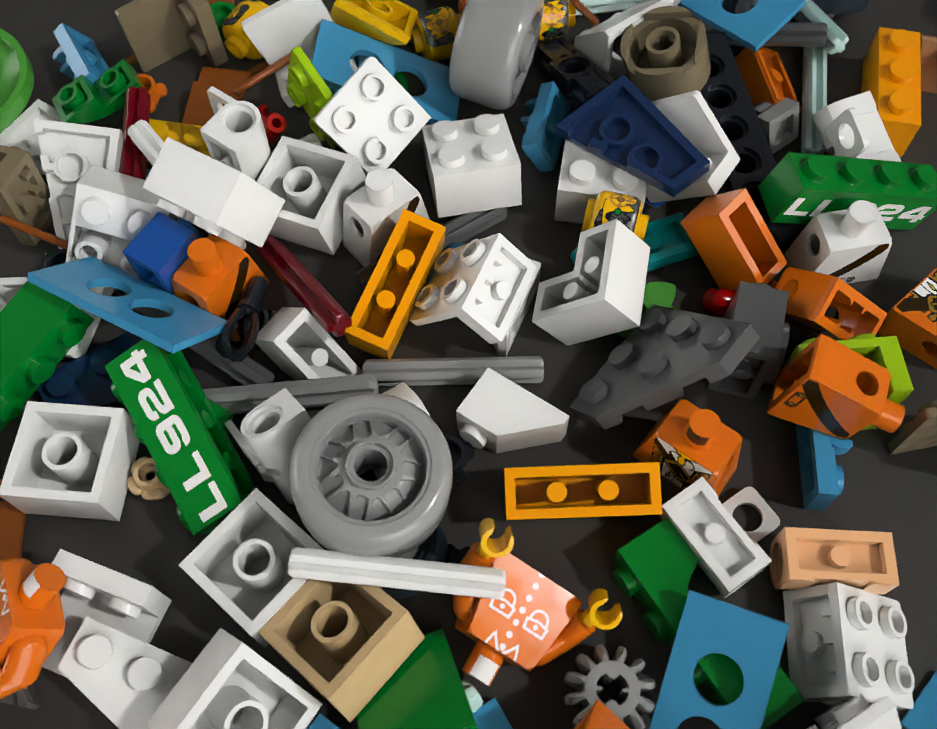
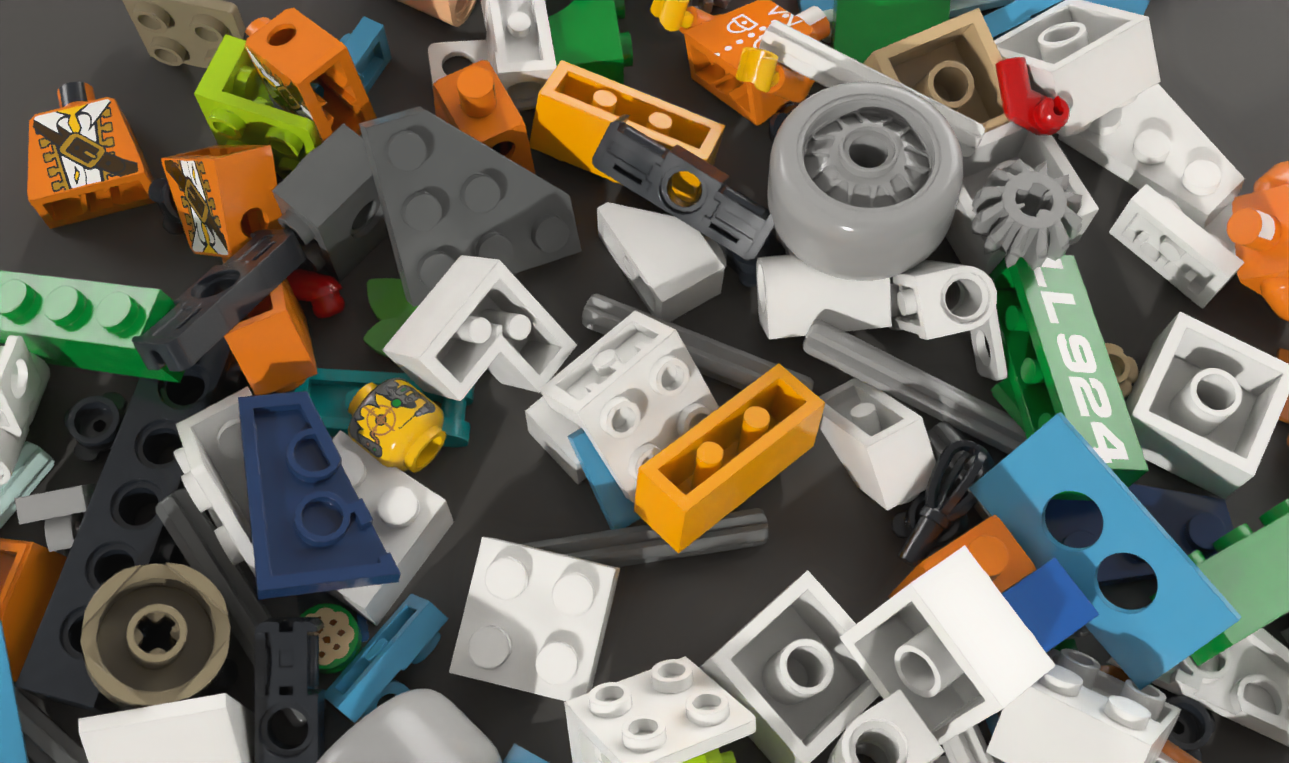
camera: 160 degrees left, 5 degrees up
(221, 499) = (1026, 214): none -> light grey gear
(260, 625) = (1025, 106): none -> red arm
(305, 287) = (849, 503): dark red axle -> none
(374, 212) = (694, 588): white torso -> none
(517, 443) = (648, 171): none -> black piece
(765, 186) = (220, 300): none -> black piece
(843, 244) = (132, 258): white torso -> none

